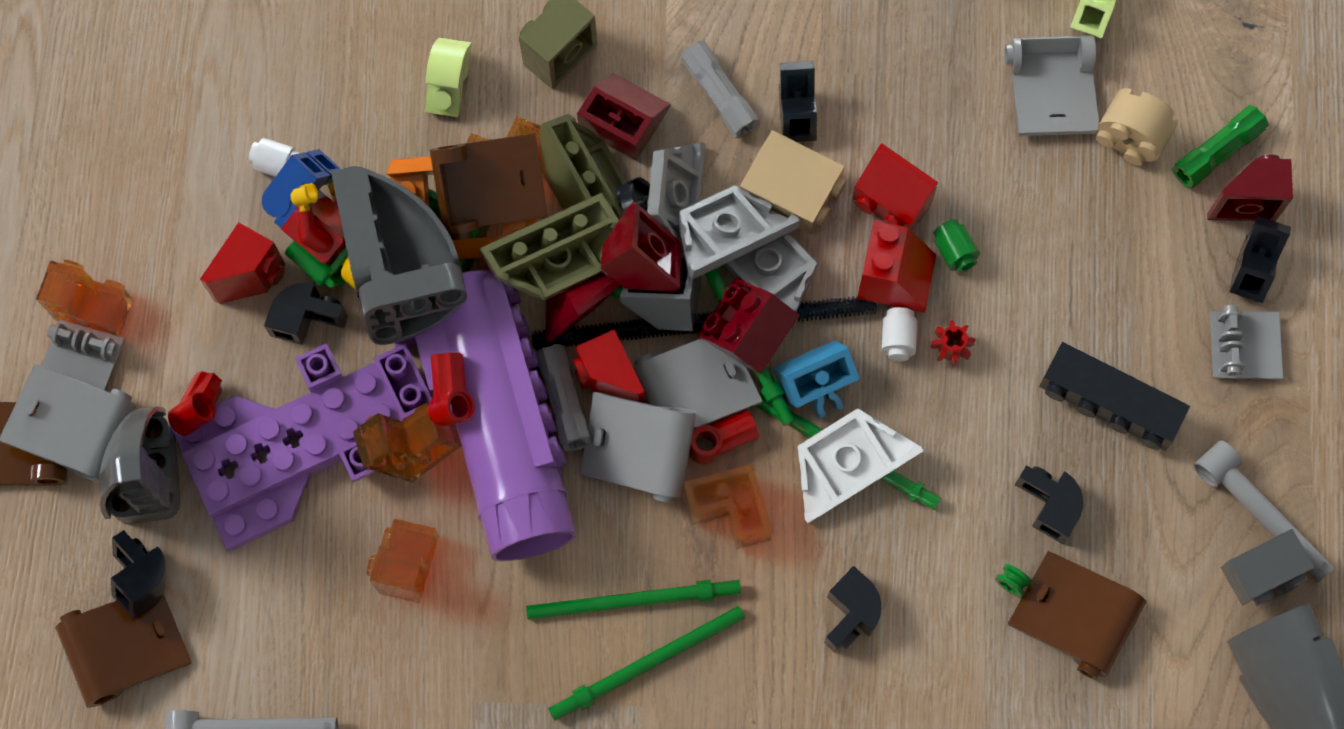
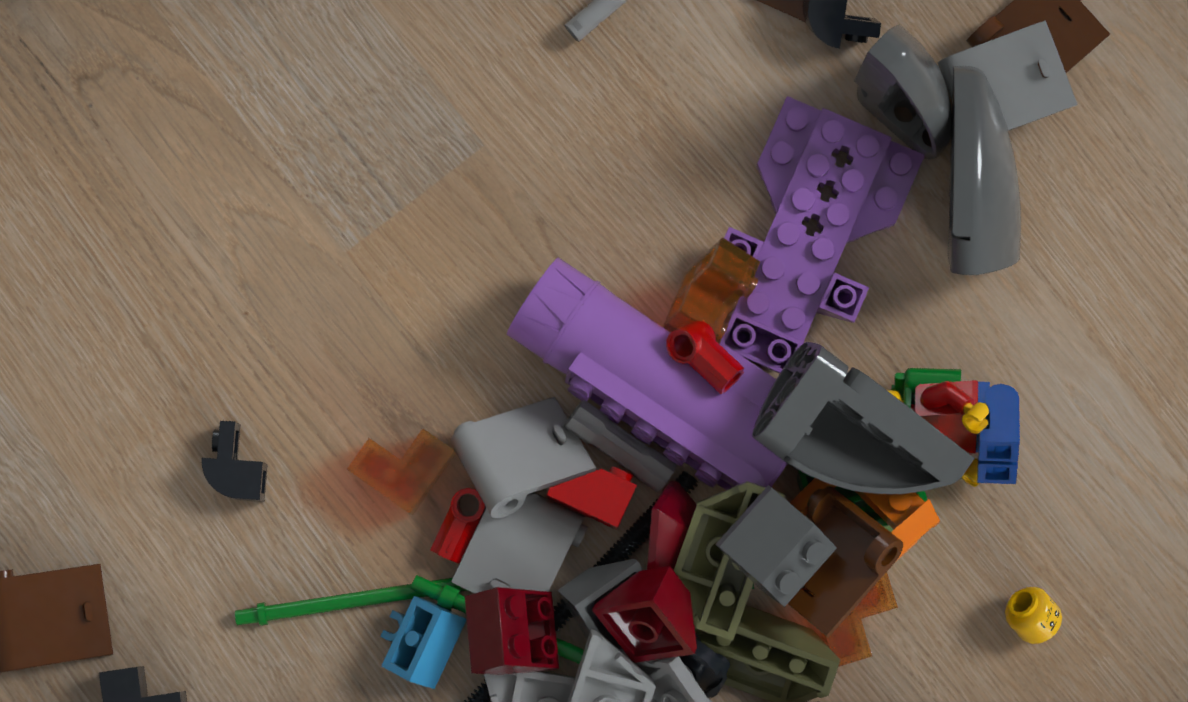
camera: 140 degrees right, 10 degrees up
(74, 297) = (1098, 190): clear orange brick -> none
(82, 353) = (1054, 150): light grey hinge -> none
(177, 334) = (982, 180): none -> dark grey panel
(197, 404) = (913, 182): red piece -> none
(243, 266) = (986, 332): red slope -> none
(269, 156) = (1052, 450): white brick -> none
(296, 307) = (912, 334): black brick -> none
(387, 64) = (1033, 615): none -> yellow head
(403, 560) = (629, 200): clear orange brick -> none
(445, 76) = (973, 650): yellowish green brick -> none
(516, 216) = (776, 546): none -> dark grey slope
(584, 696) = (396, 220): green bar -> none
(703, 591) = (372, 382): green bar -> none
(848, 460) = (336, 590): white wing -> none
(1013, 580) = (121, 601): green bush -> none

